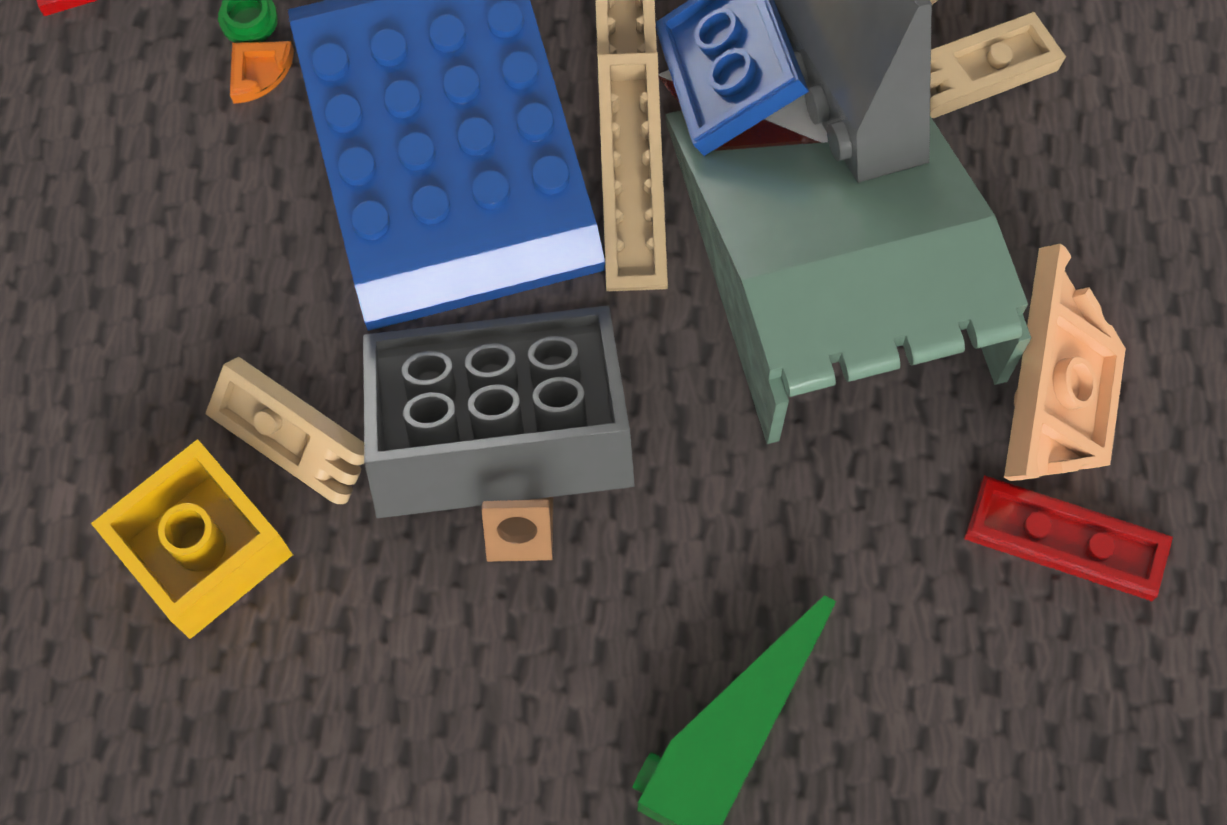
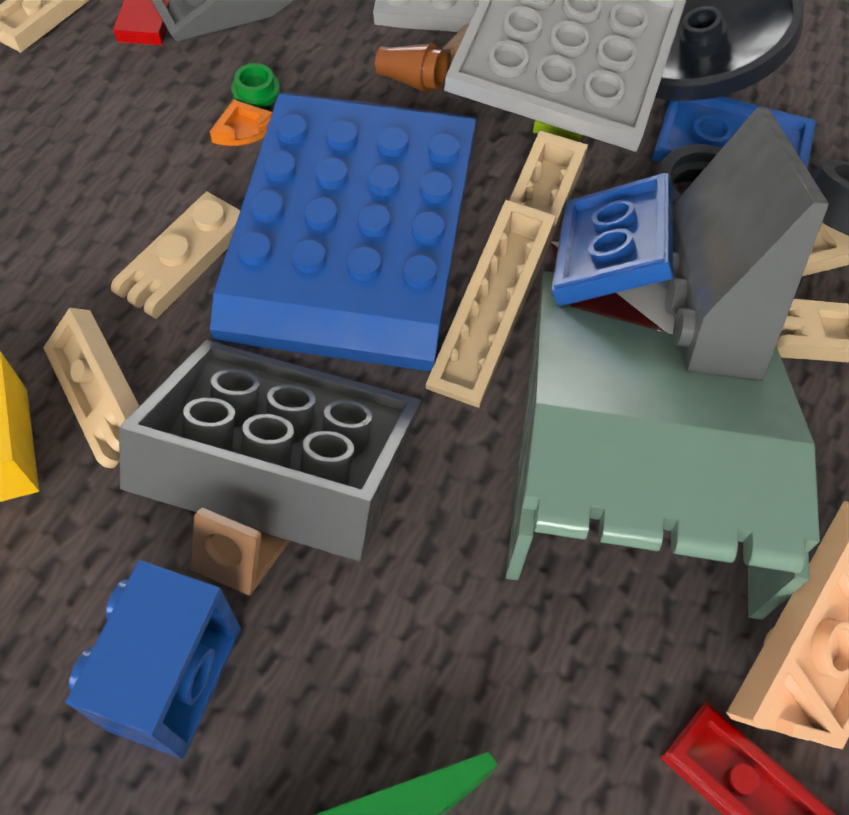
camera: 20 degrees right, 10 degrees down
(283, 250) = (178, 255): none -> tan hinge
(512, 644) = (155, 659): none -> blue brick

